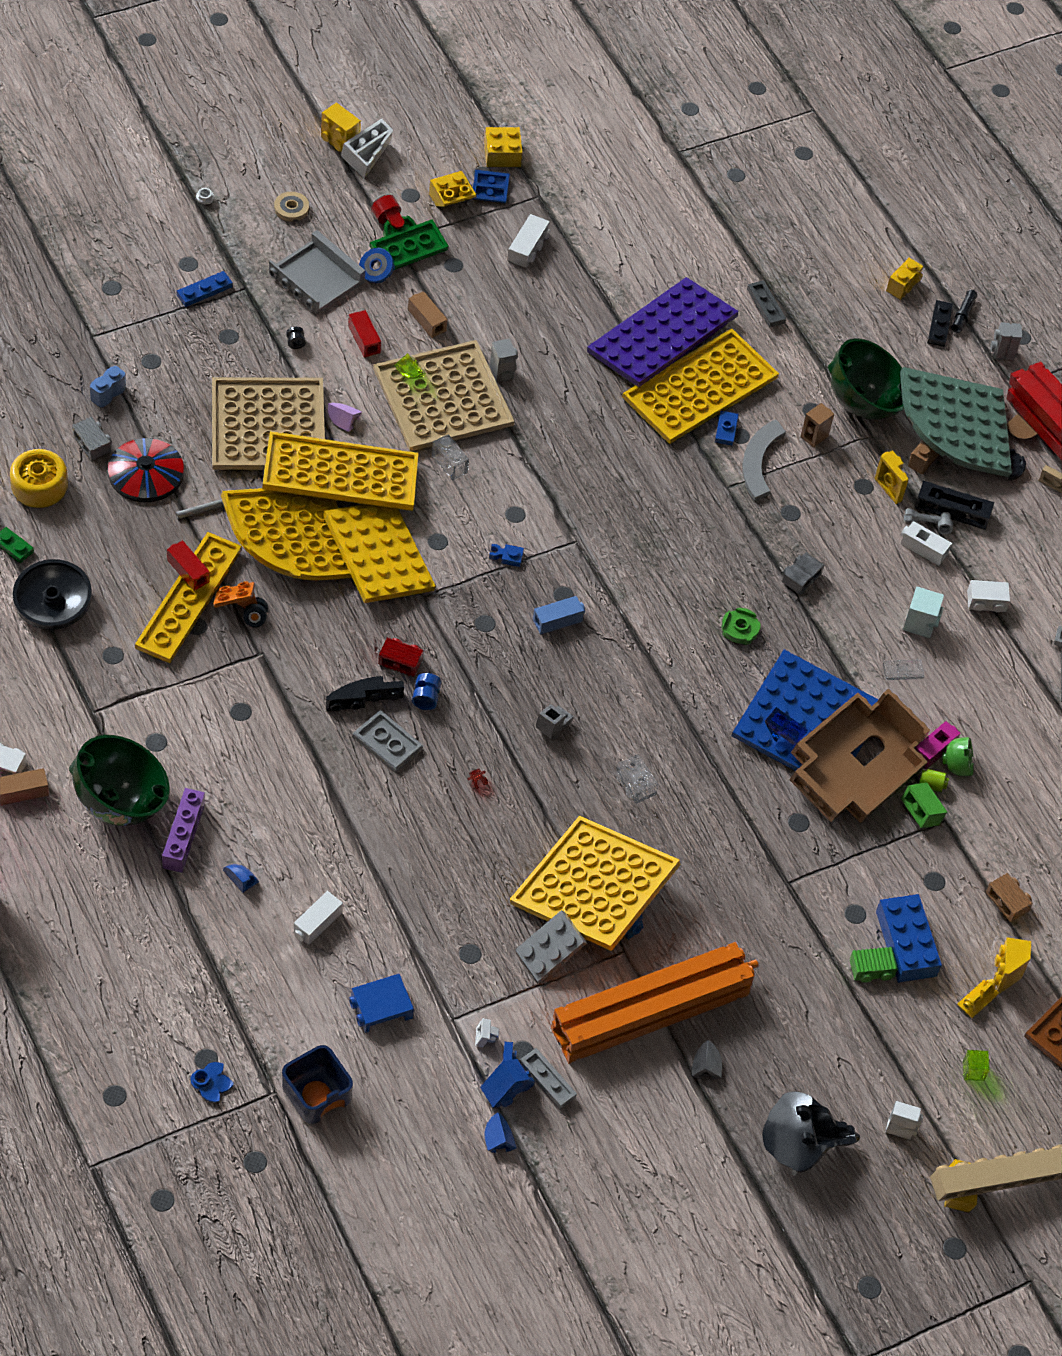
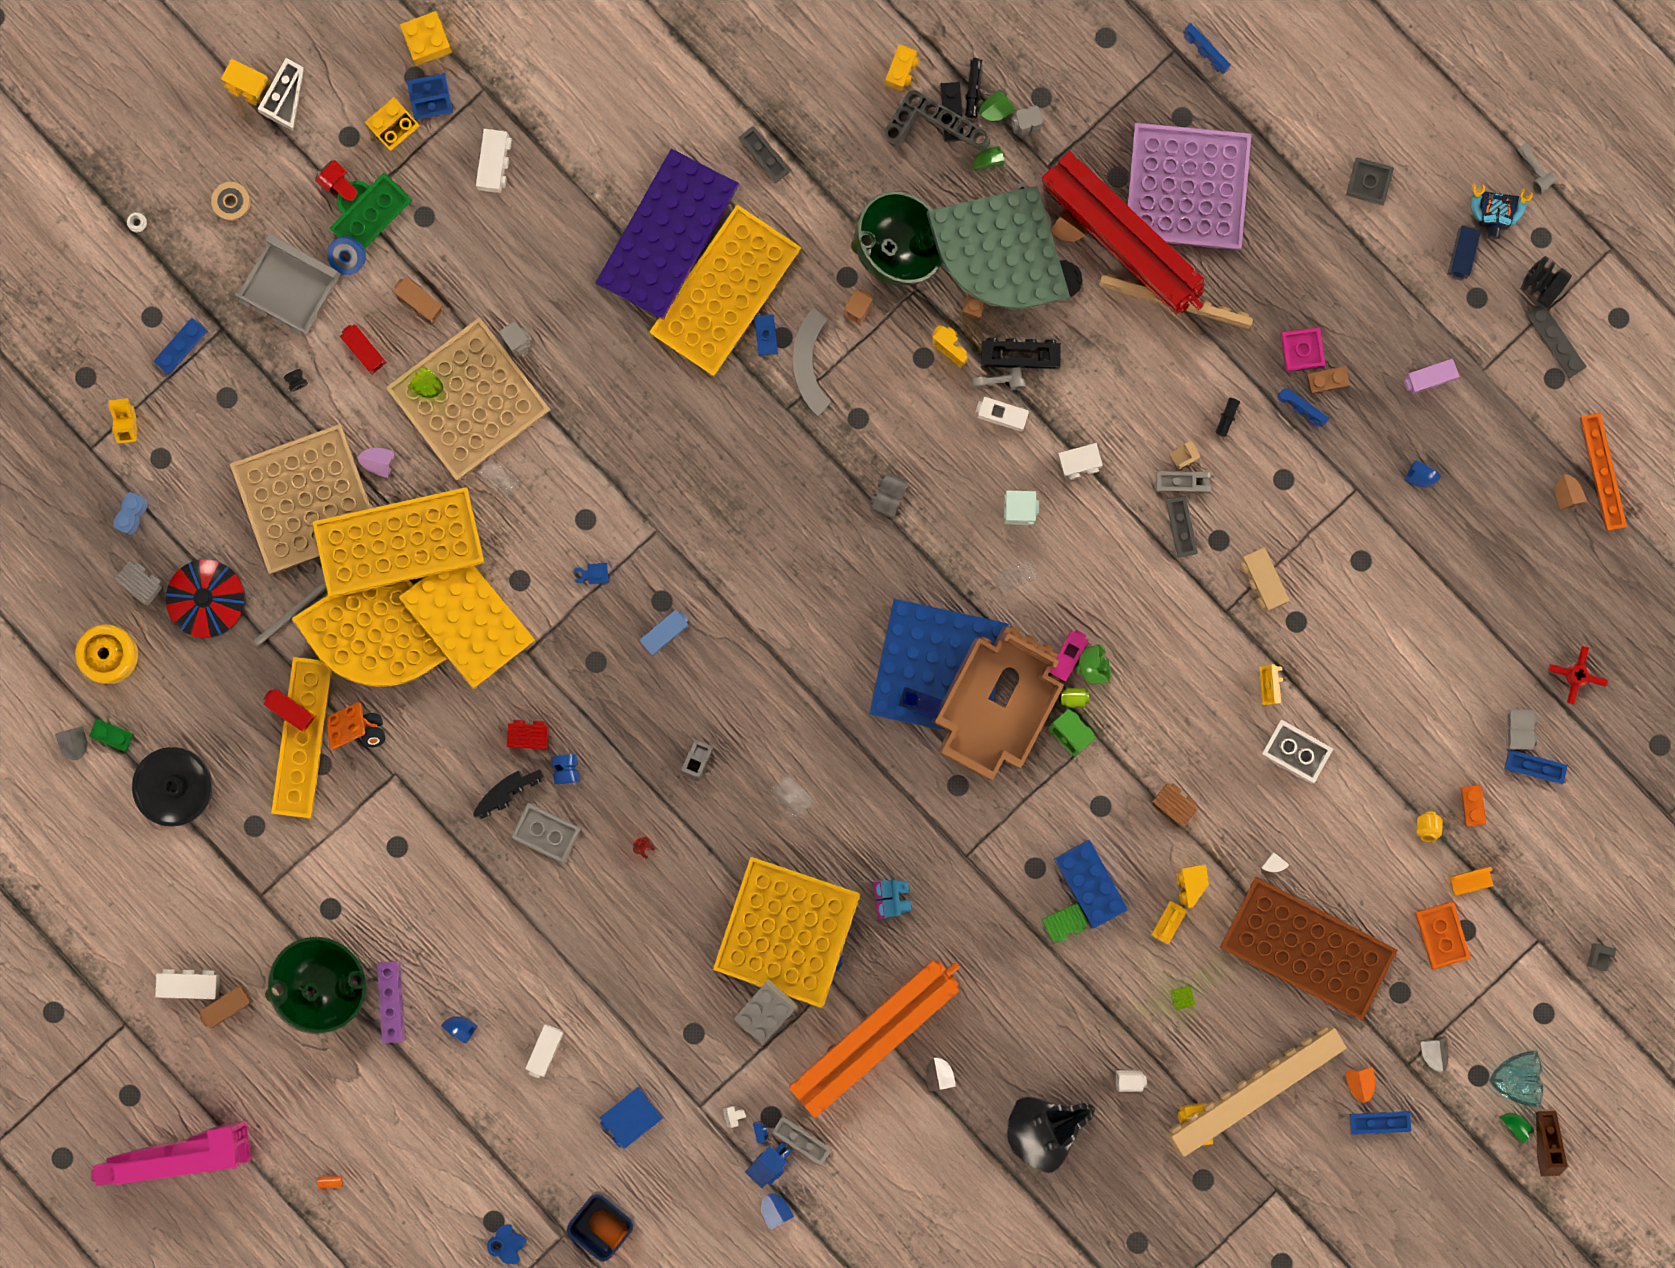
camera: 10 degrees left, 30 degrees up
(56, 969) = (329, 1182): none -> orange pin
(133, 319) = (124, 420): none -> yellow brick
(702, 890) = (893, 906): none -> dark azure hips
(740, 635) = (852, 572): bright green plate -> none
(927, 313) = (937, 118): none -> dark grey beam
(964, 362) = (988, 158): none -> bright green brick
(982, 329) = (996, 107): none -> bright green brick

